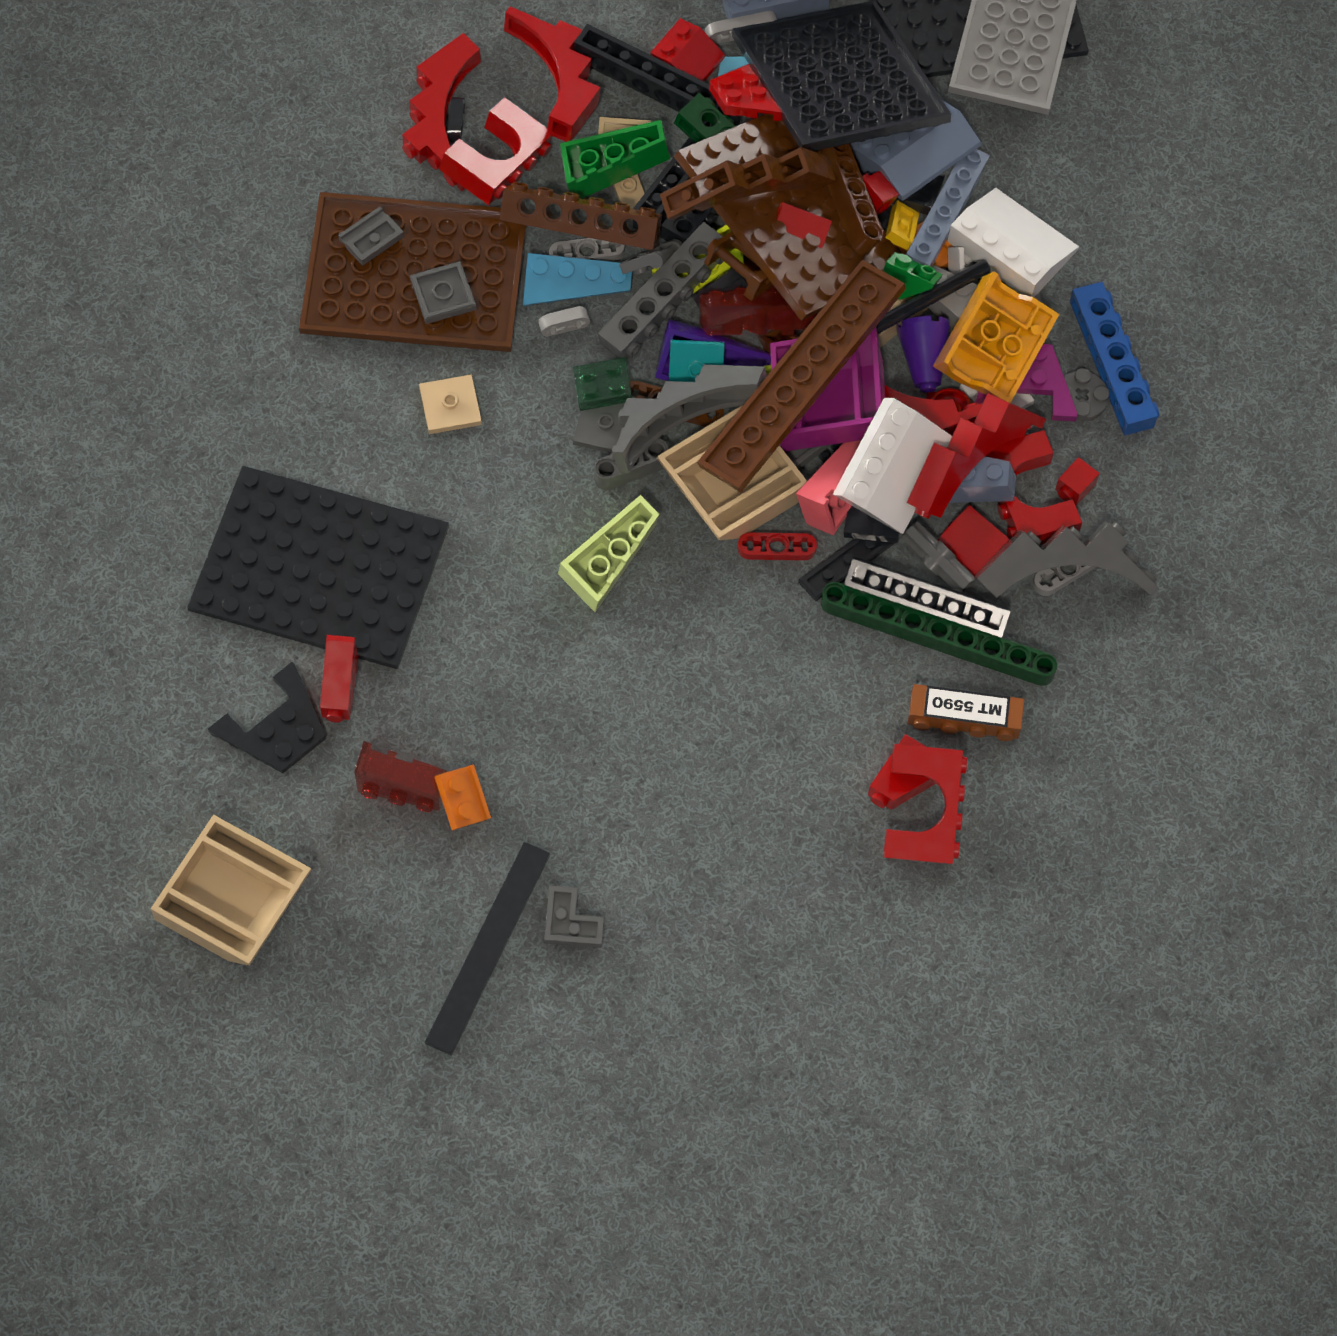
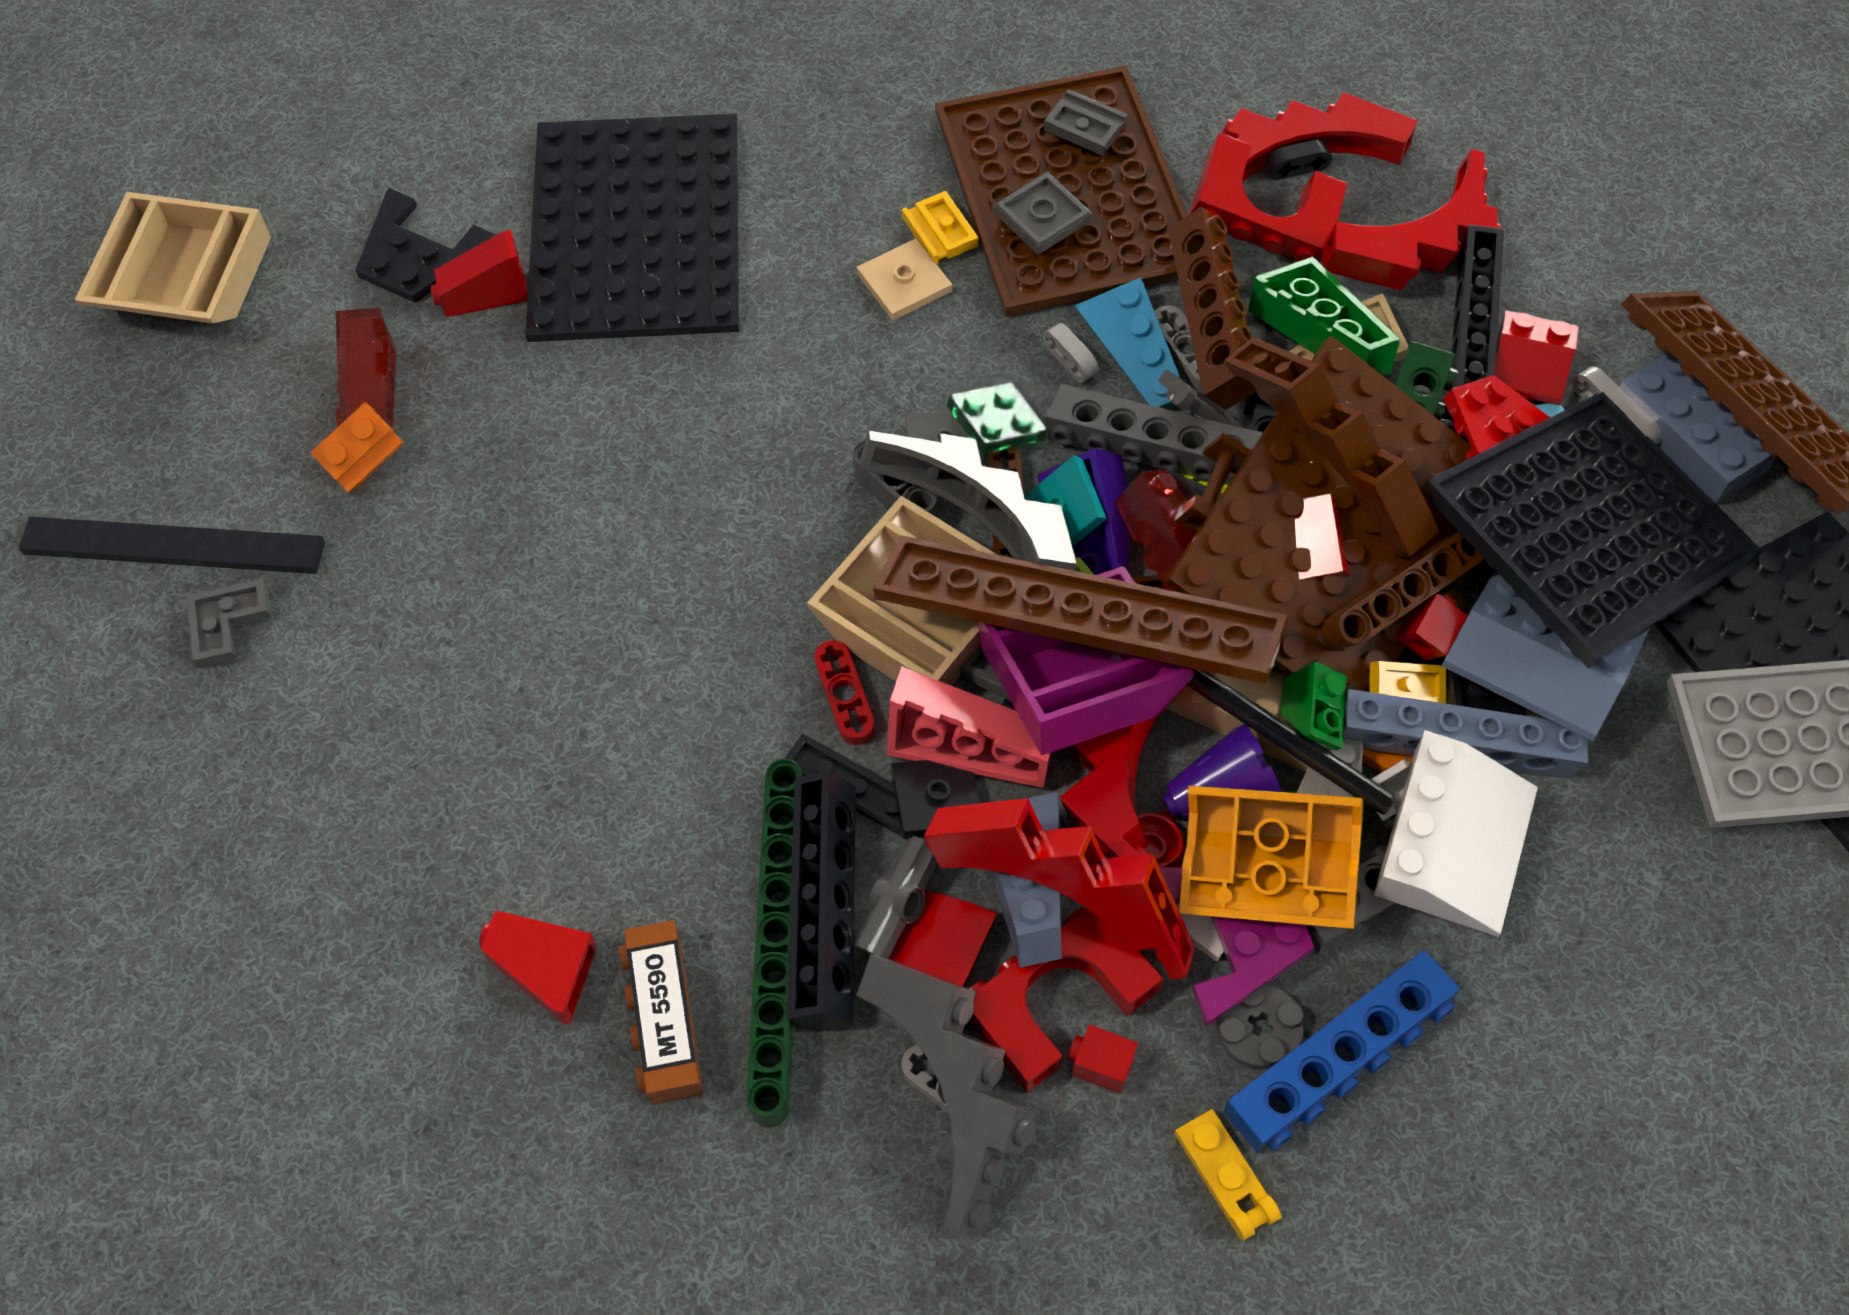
camera: 75 degrees right, 5 degrees down
(415, 365) = (940, 227): none -> yellow plate
(605, 556) = (752, 497): yellowish green wedge -> none
(890, 463) = (982, 757): white slope -> none
(945, 769) = (532, 996): red arch -> none
(1161, 446) = (1226, 1174): none -> yellow plate

